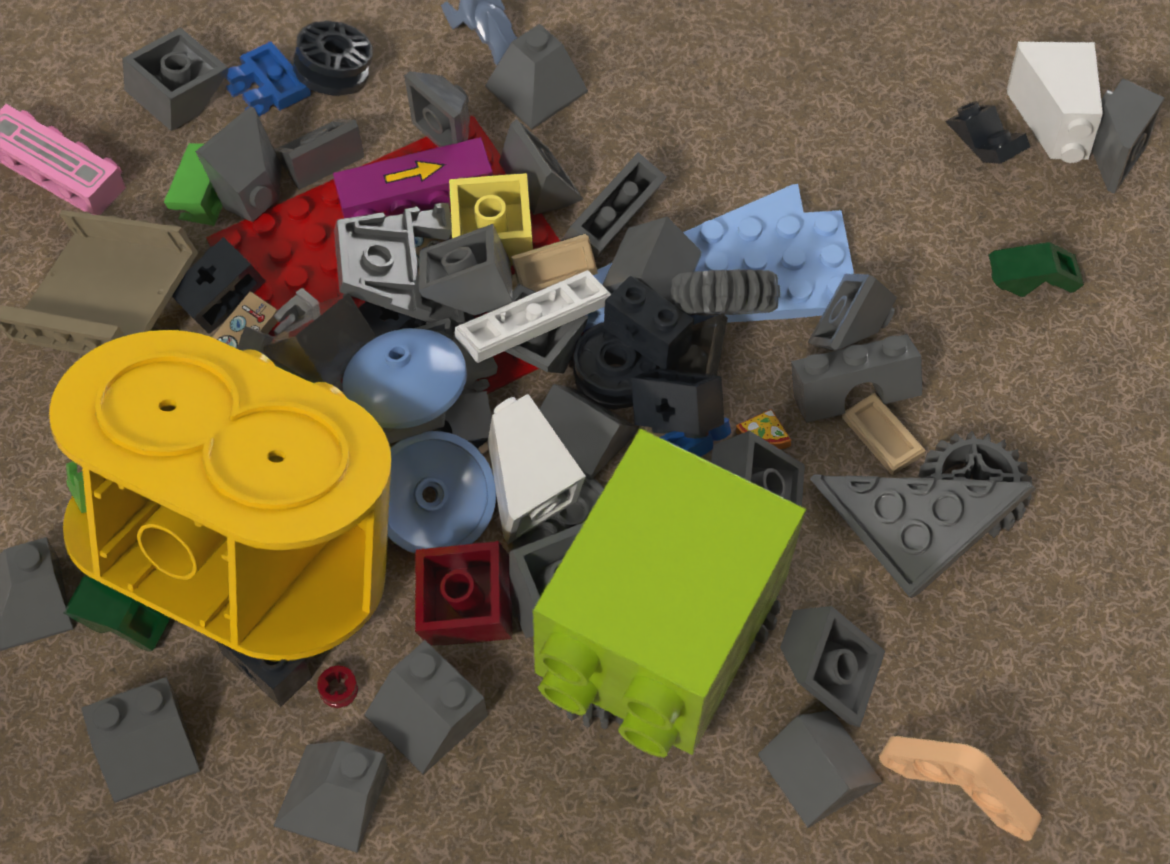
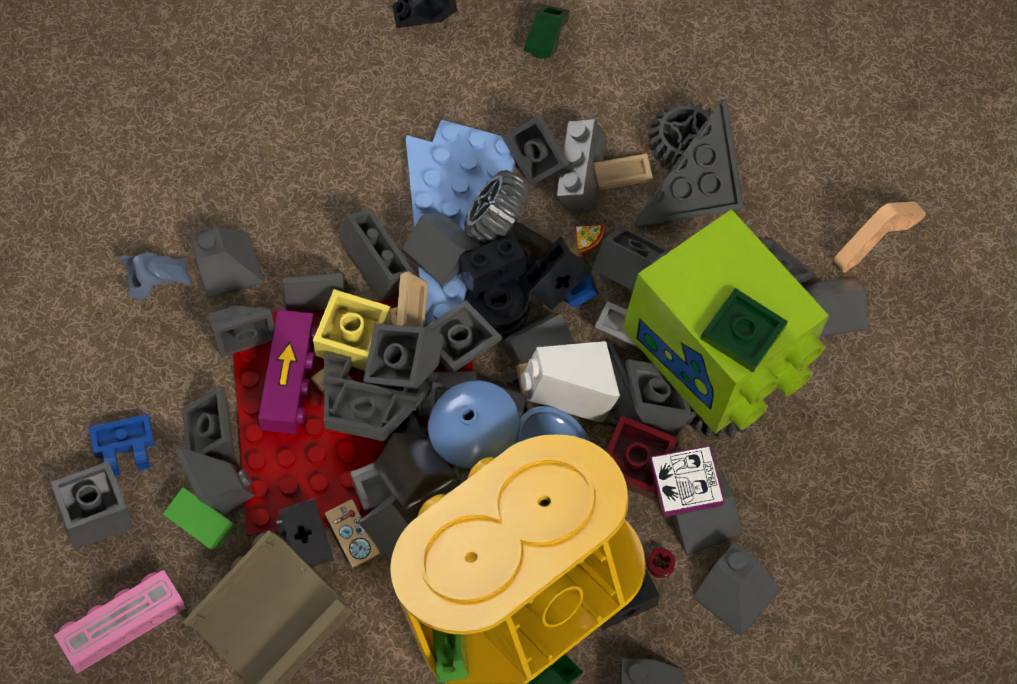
camera: 70 degrees left, 5 degrees up
(332, 58) = (134, 387): black wheel -> none
(439, 656) = (687, 481): none -> tile
(531, 316) = (456, 330): white plate -> none
(617, 589) = (744, 330): none -> dark green tile

